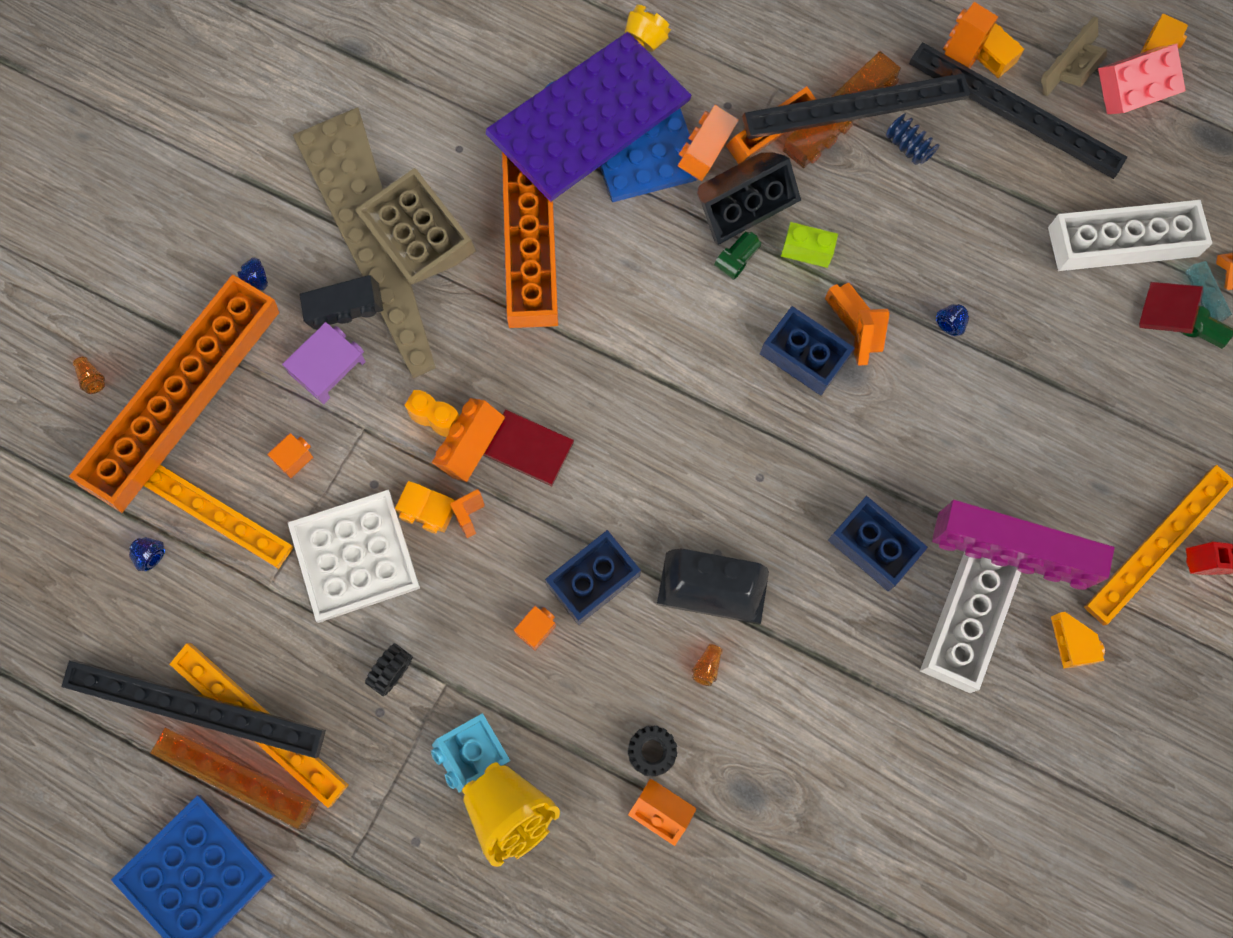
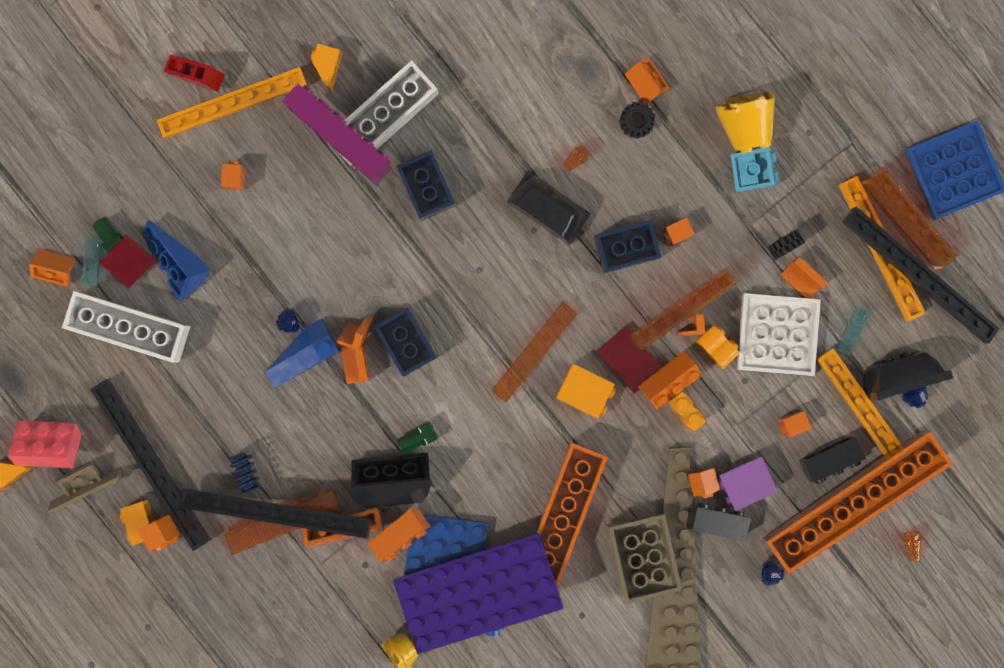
camera: 150 degrees left, 15 degrees up
(170, 569) = (903, 374): none -> black windscreen
(226, 432) = (832, 460): none -> black brick
(258, 601) = (852, 331): none -> clear light blue piece
(349, 640) = (803, 278): none -> orange panel
(377, 341) = (704, 482): none -> orange brick
(490, 528) = (681, 309): none -> clear orange brick
(565, 386) = (586, 391): none -> light orange brick
(648, 409) = (534, 352): none -> clear orange tile
(809, 245) = (362, 422): lime brick -> none
(915, 294) = (306, 351): none -> blue wedge
(1103, 328) = (181, 265): none -> blue wedge
(1109, 456) = (233, 176): none -> orange brick

